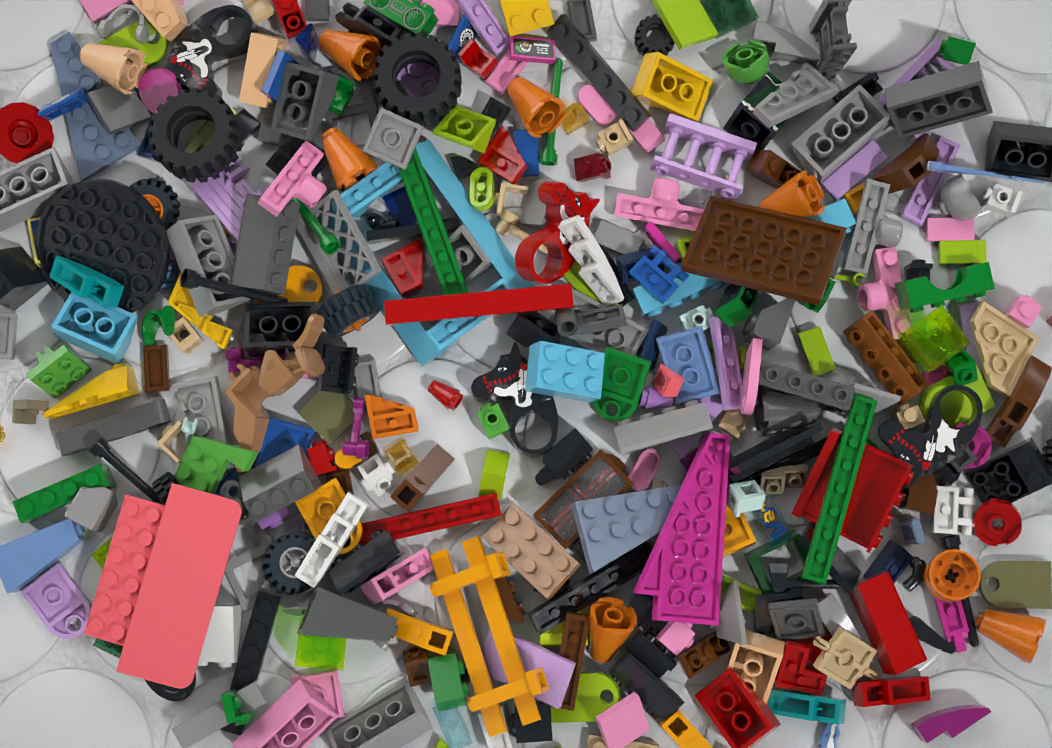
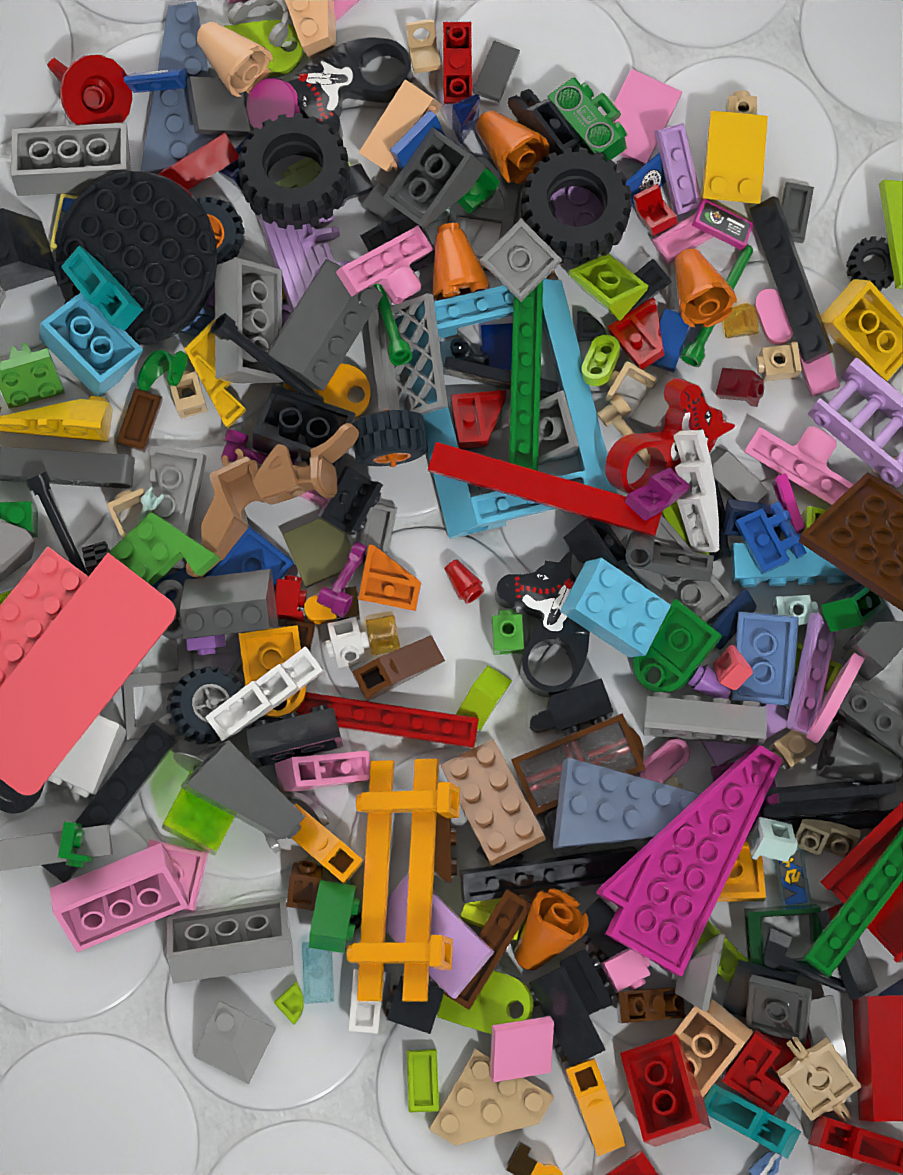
camera: 20 degrees right, 5 degrees down
(123, 155) = (202, 162): none -> red tile
(564, 275) = (658, 494): none -> magenta slope

